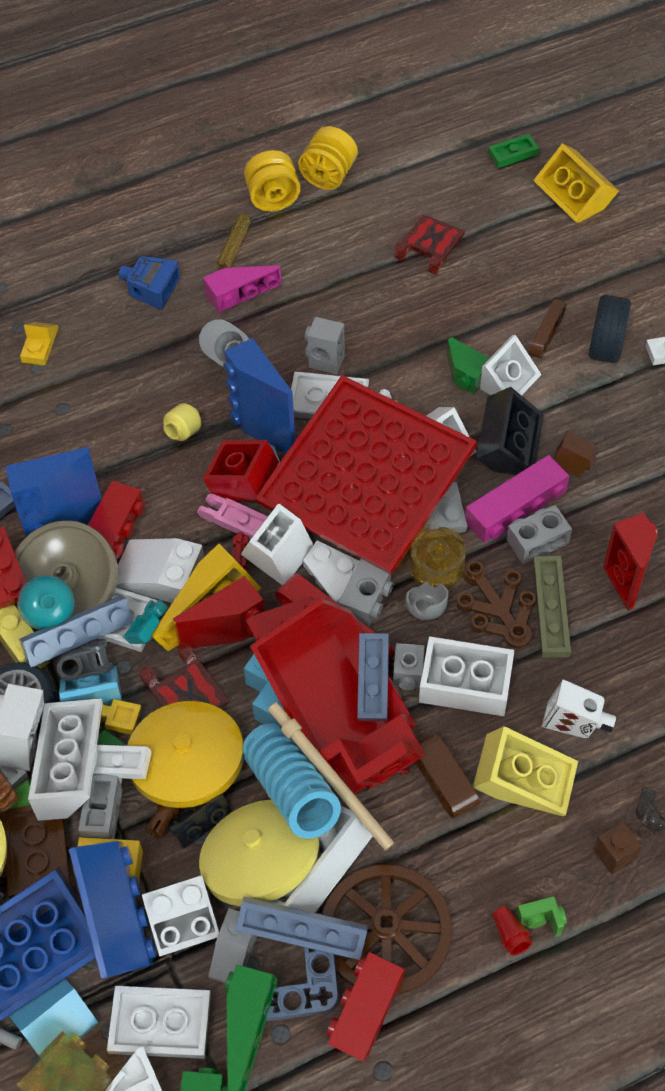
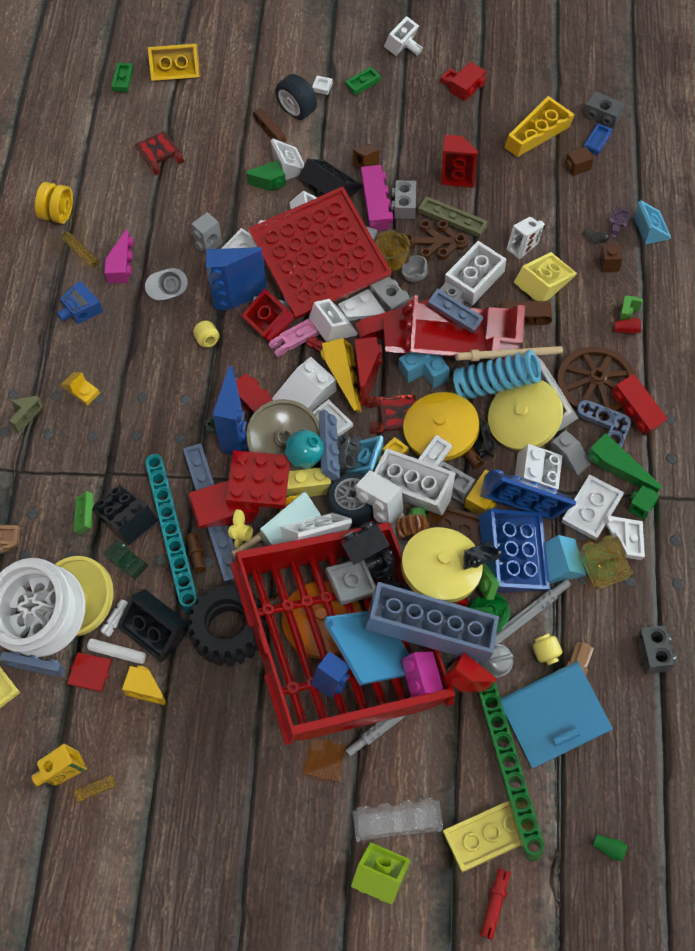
camera: 60 degrees left, 5 degrees up
(145, 624) = (345, 411): teal plate -> none
(301, 928) = (586, 409): sand blue plate -> none
(328, 158) = (58, 165): yellow wheel -> none

